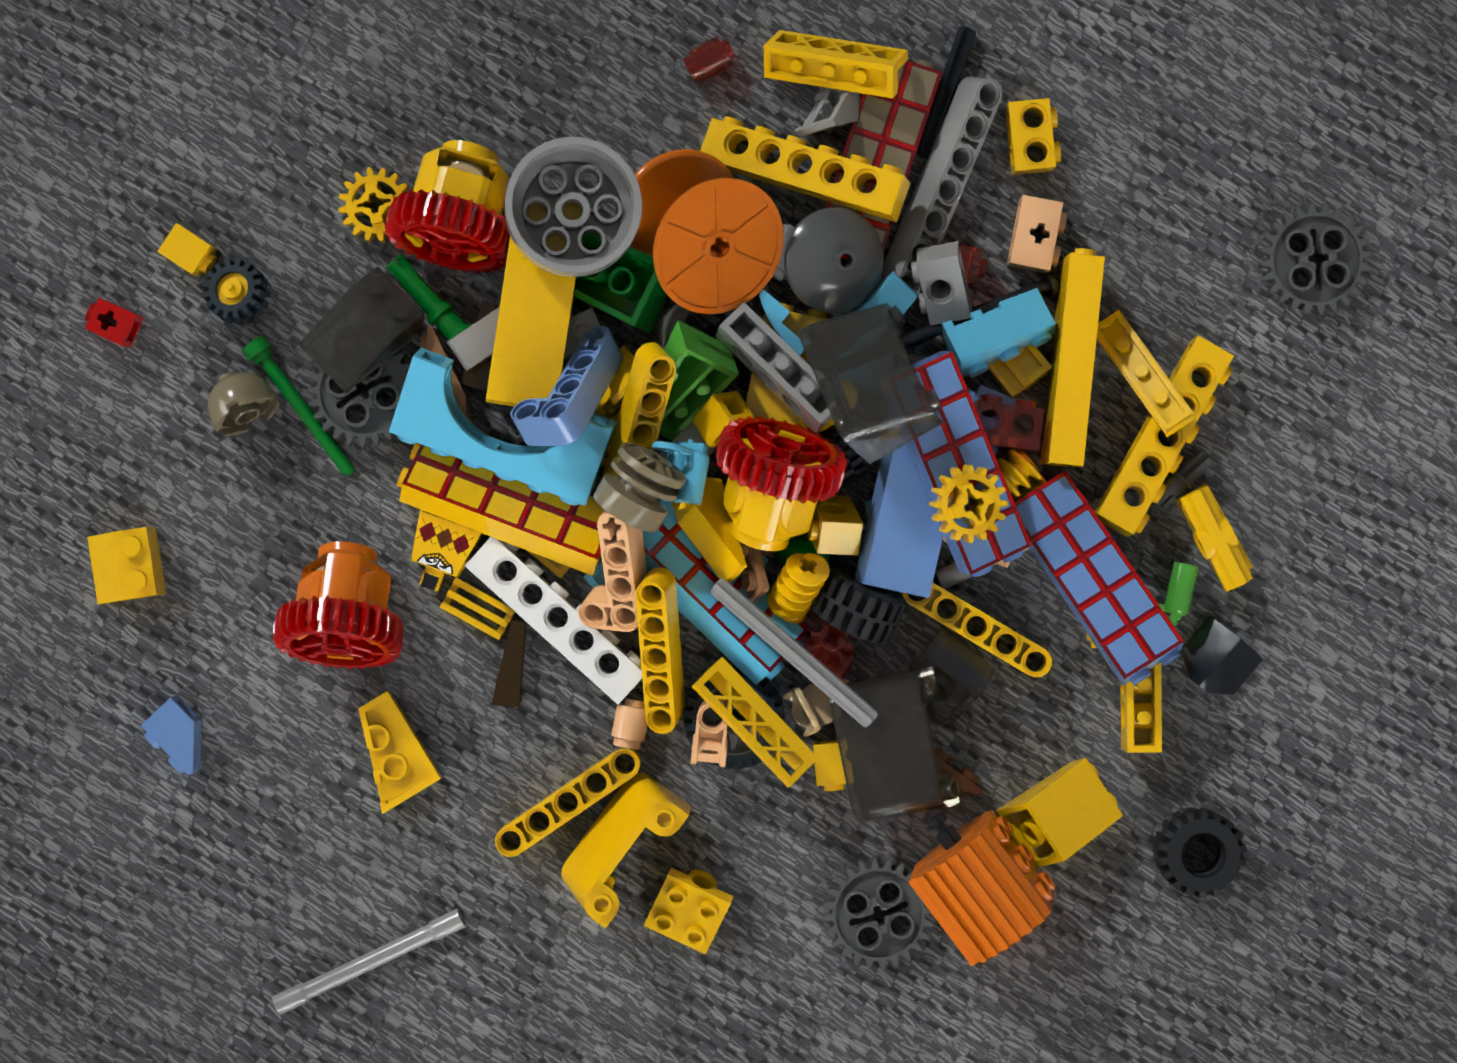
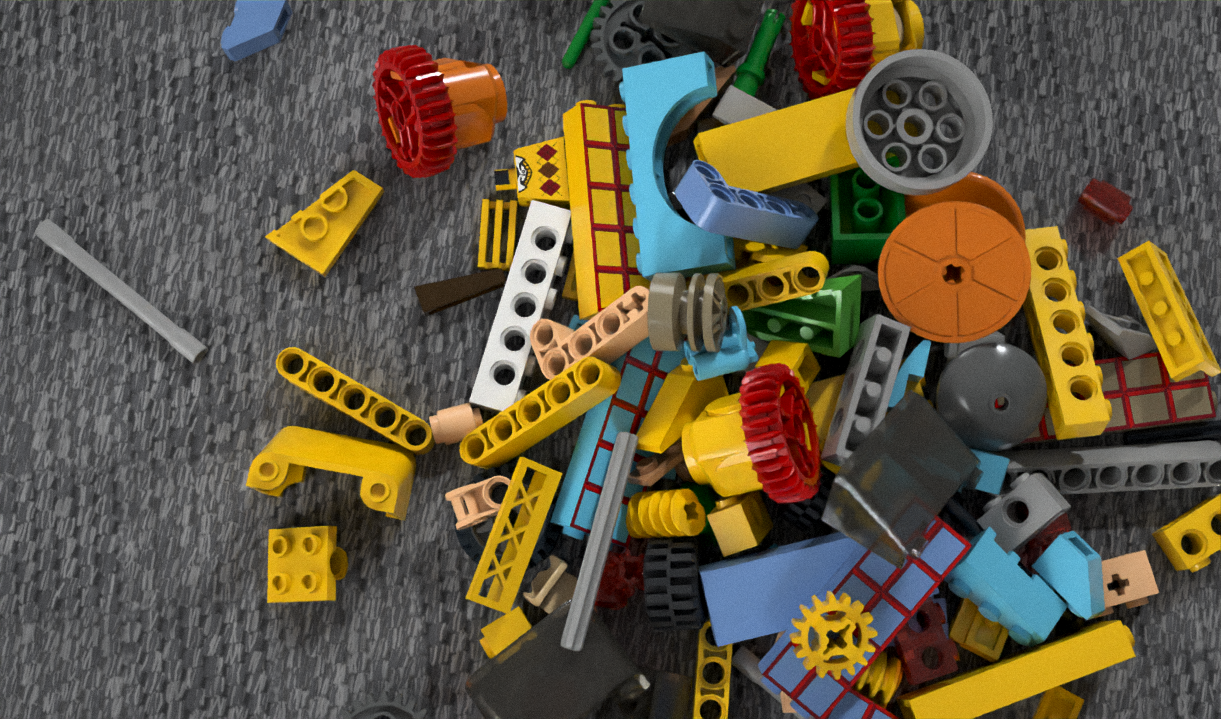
camera: 60 degrees right, 10 degrees down
(1014, 267) = (1074, 573): none -> medium azure slope

